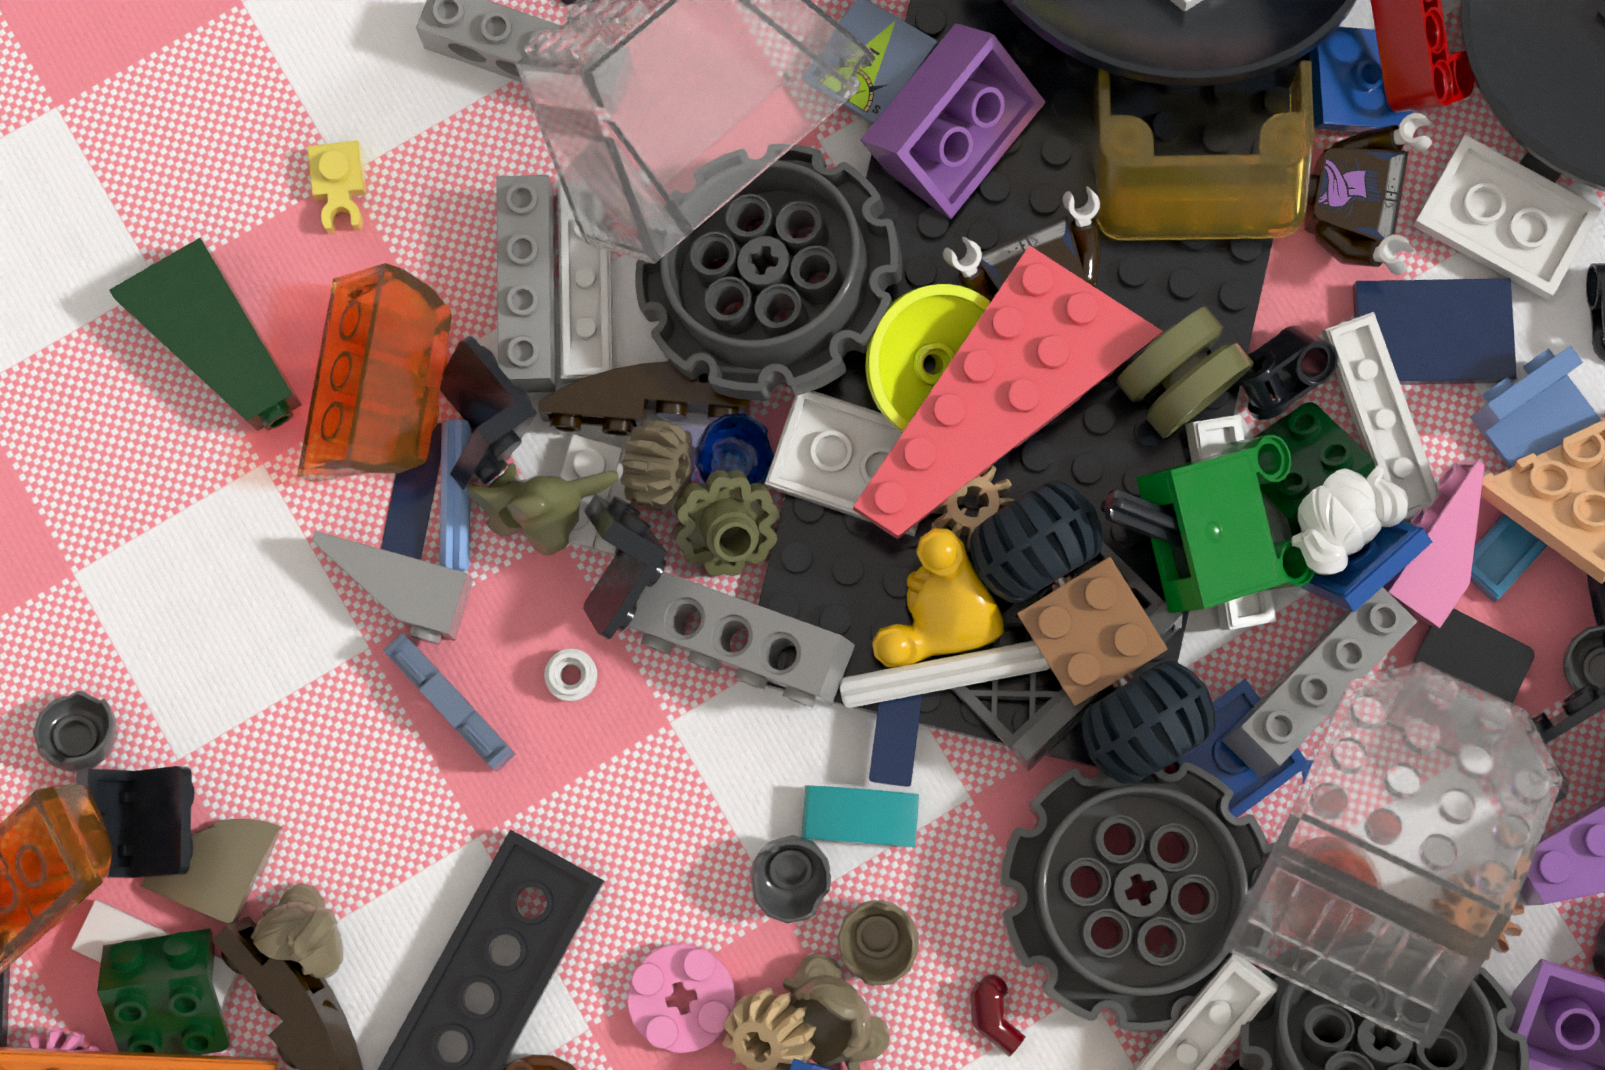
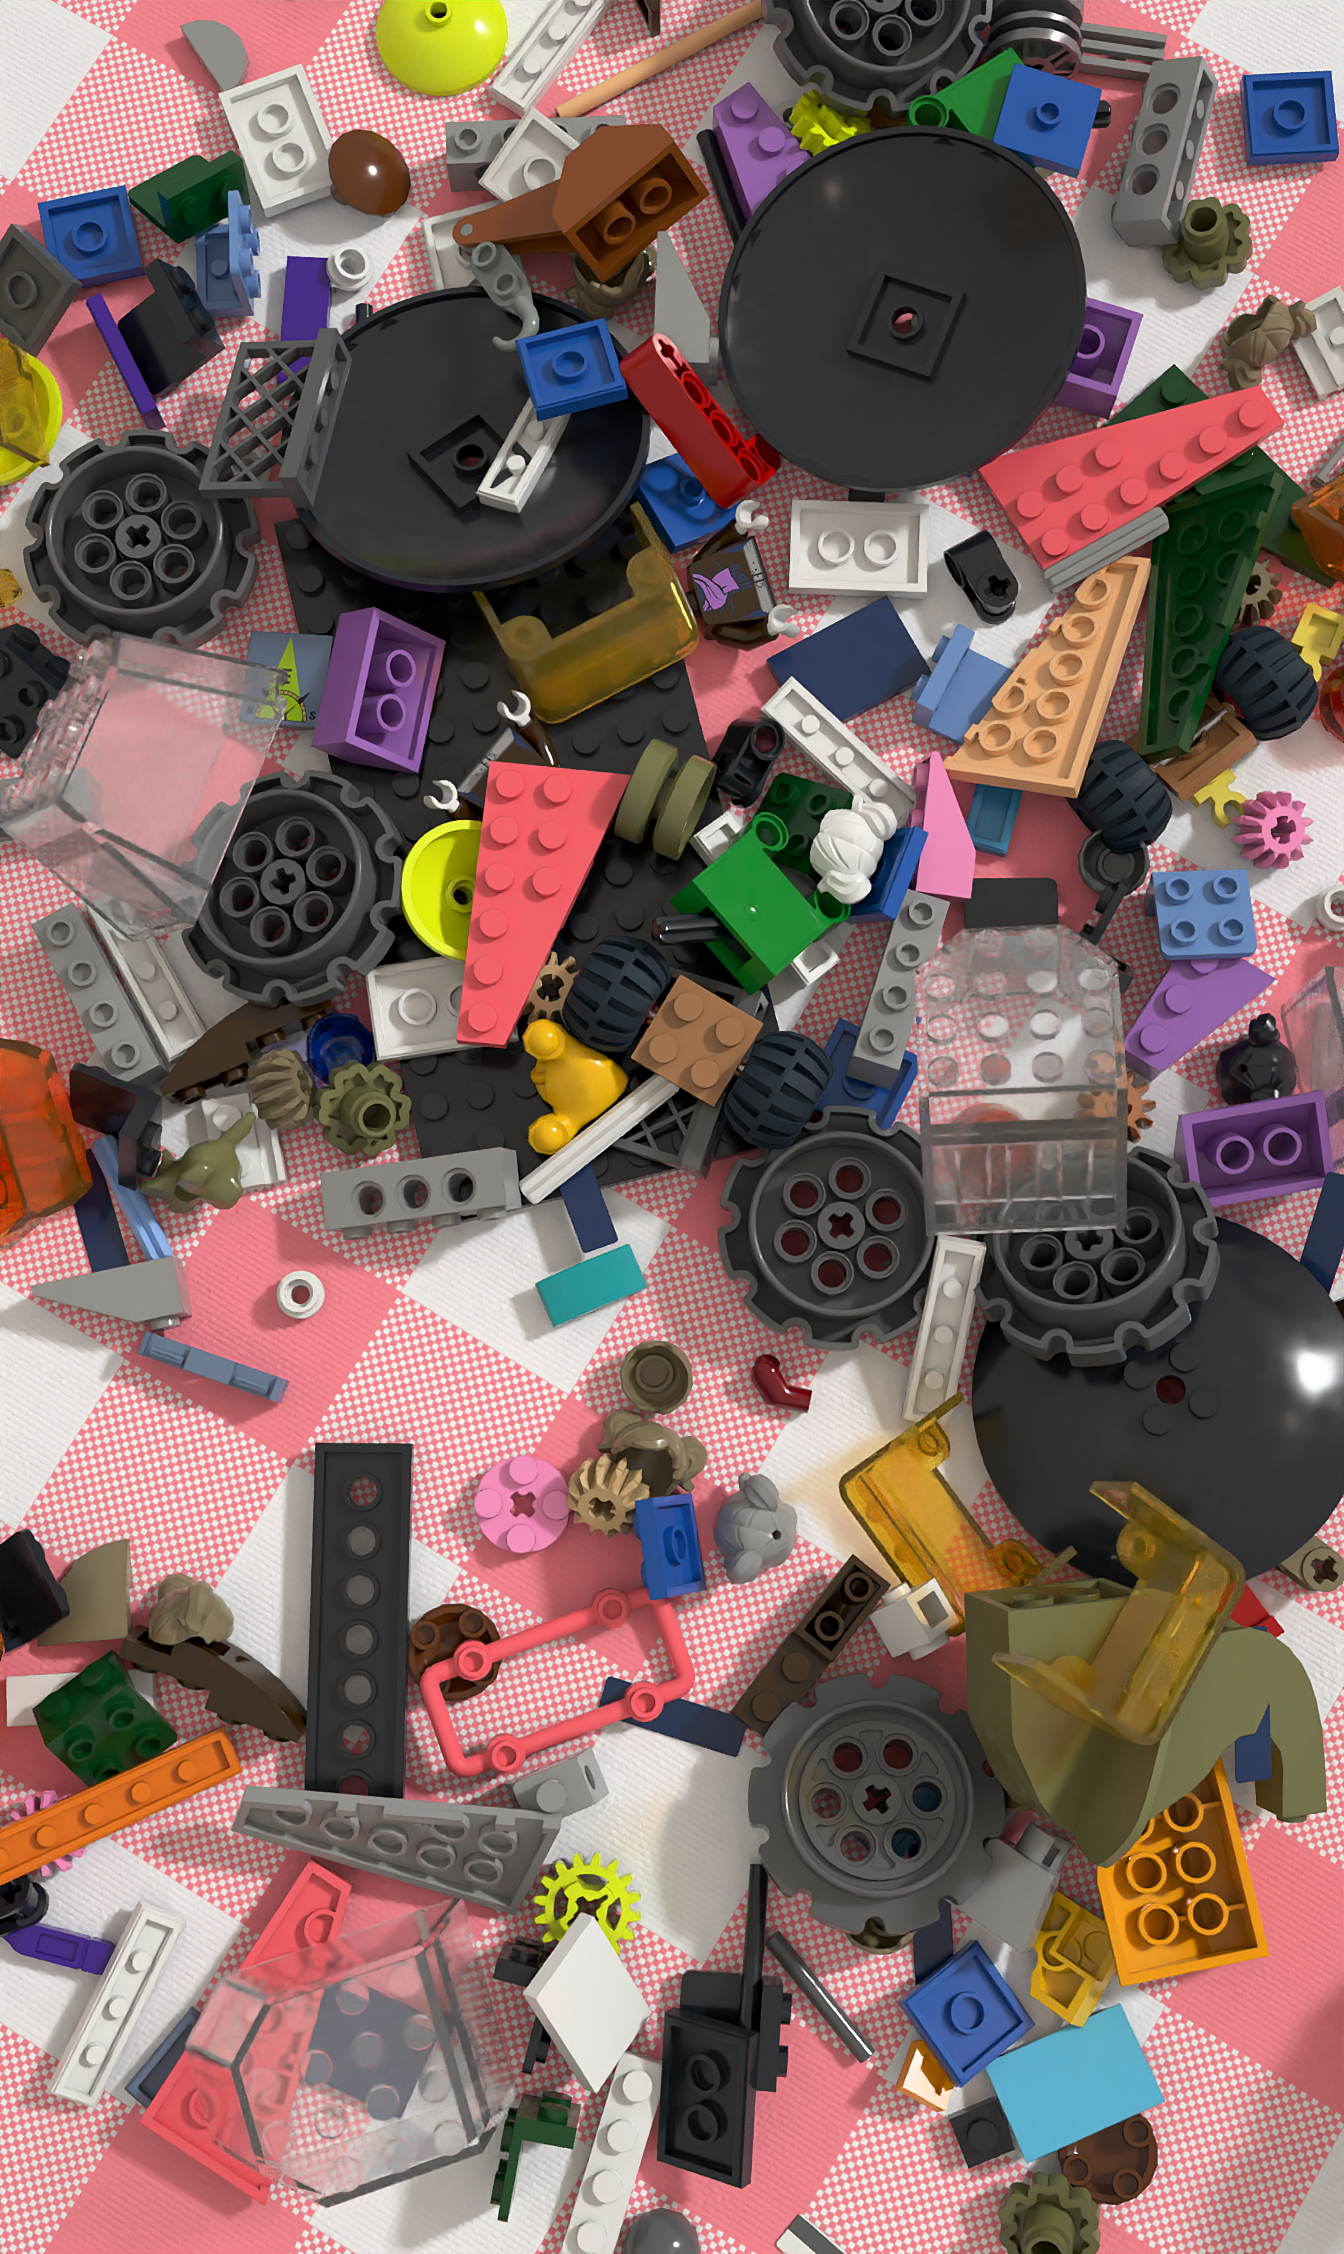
camera: 25 degrees left, 0 degrees up
(633, 568) = (306, 1180): black bracket -> none
(790, 878) = (560, 1363): dark grey hair -> none

